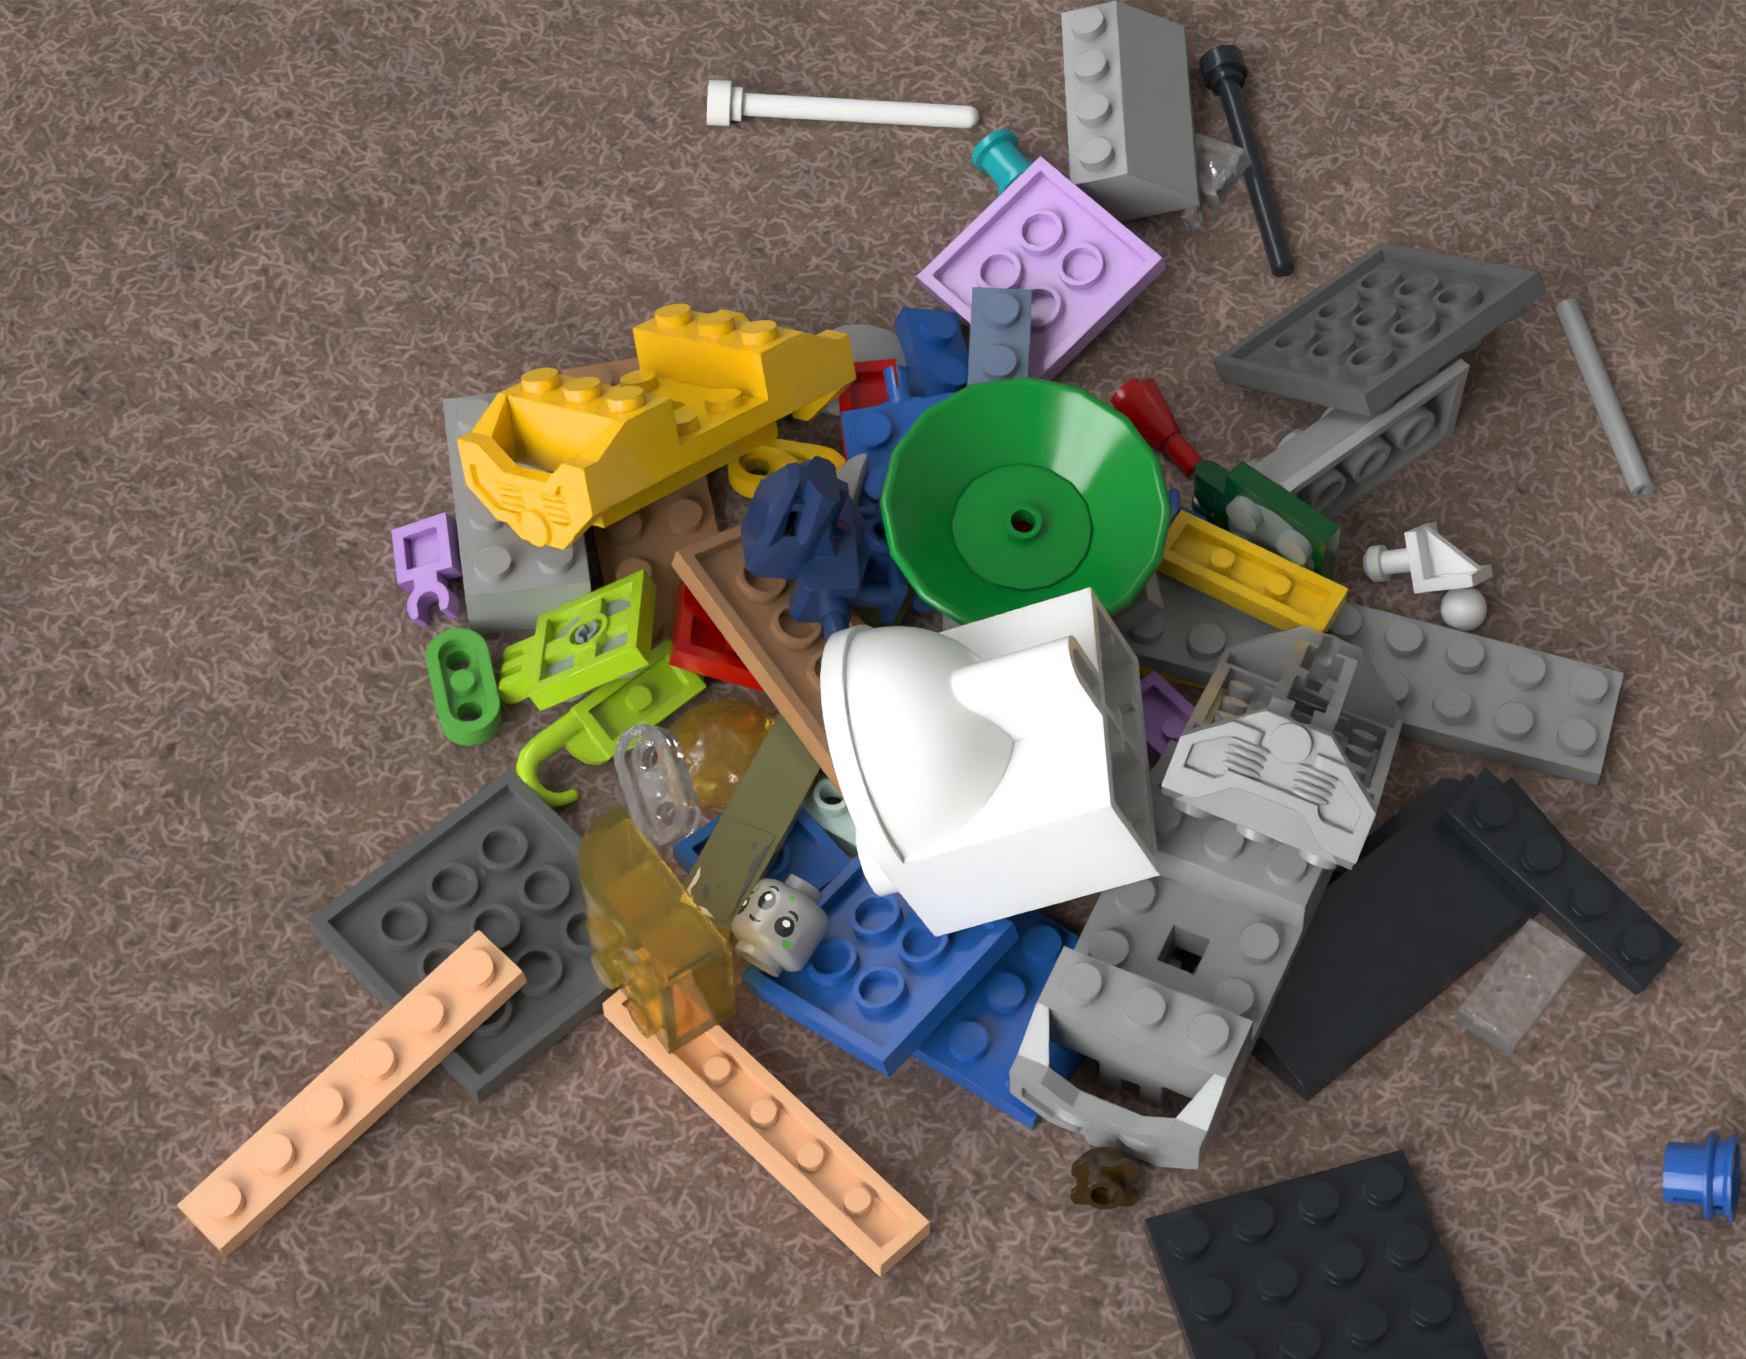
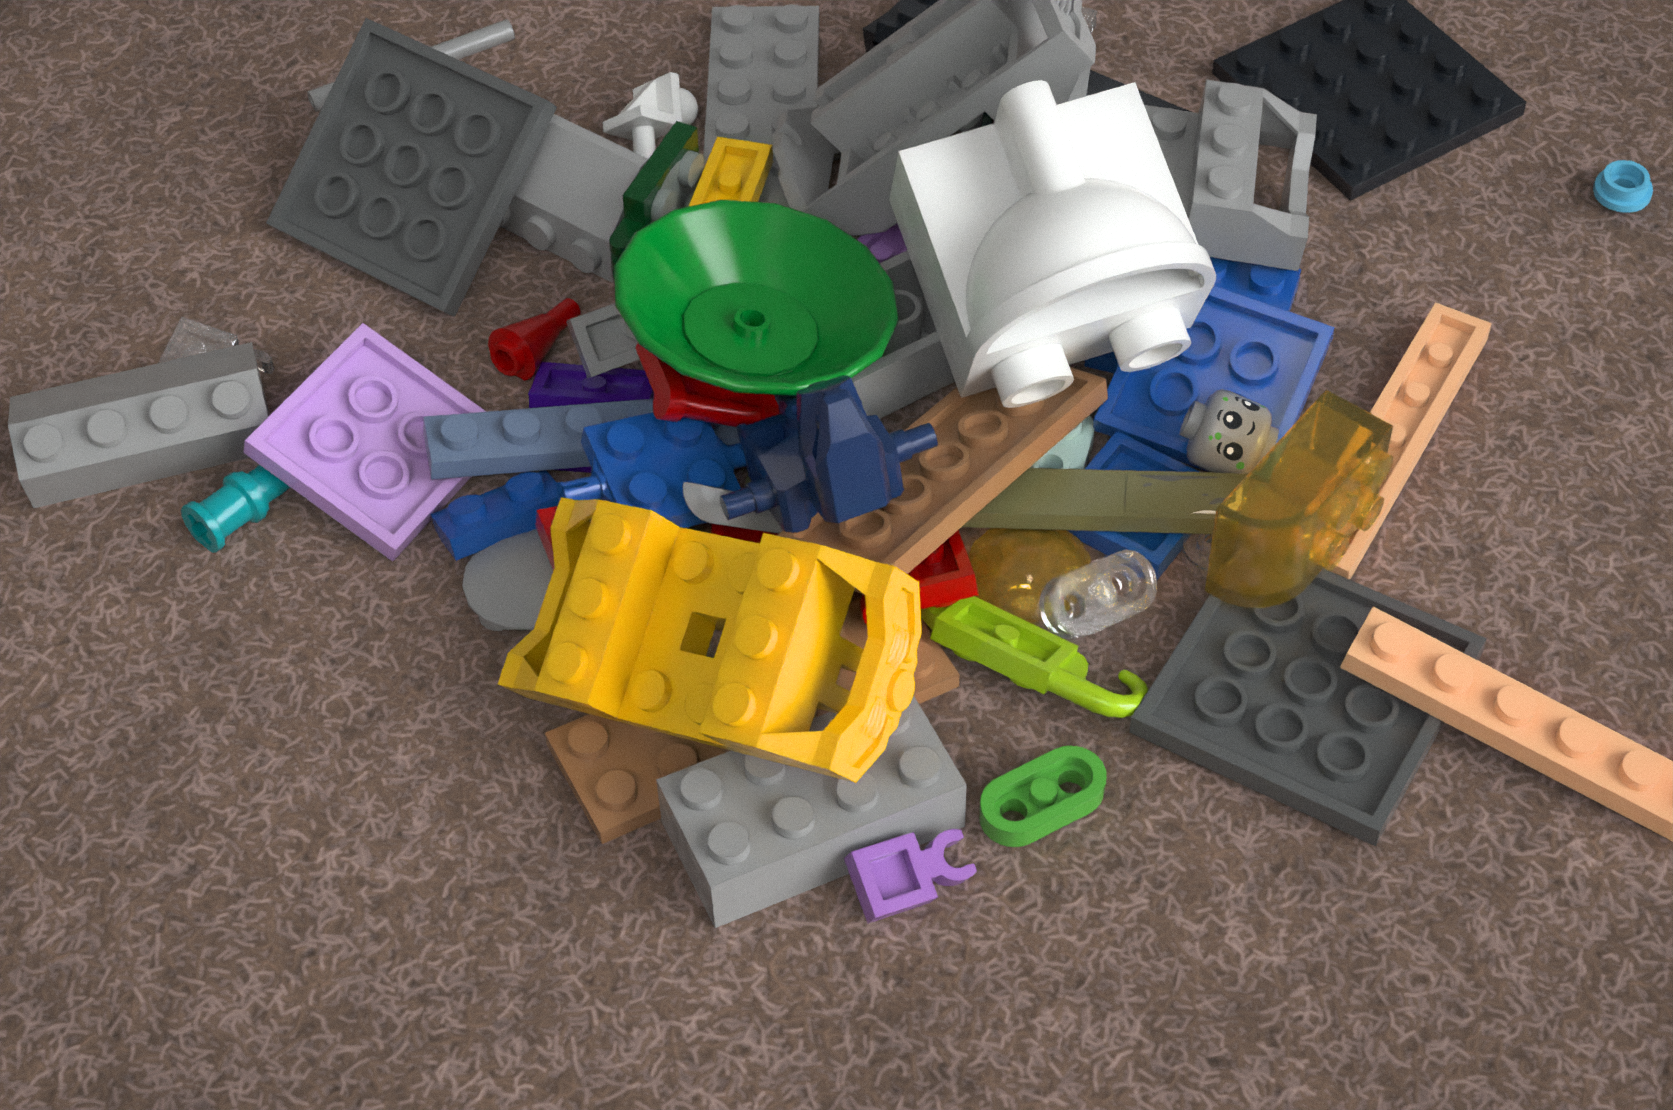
camera: 105 degrees left, 5 degrees down
(582, 644) = (981, 679): lime piece -> none
(730, 104) = (167, 785): white piece -> none
(1104, 1179) = (1333, 213): dark brown plate -> none
(1225, 73) = (64, 369): black piece -> none

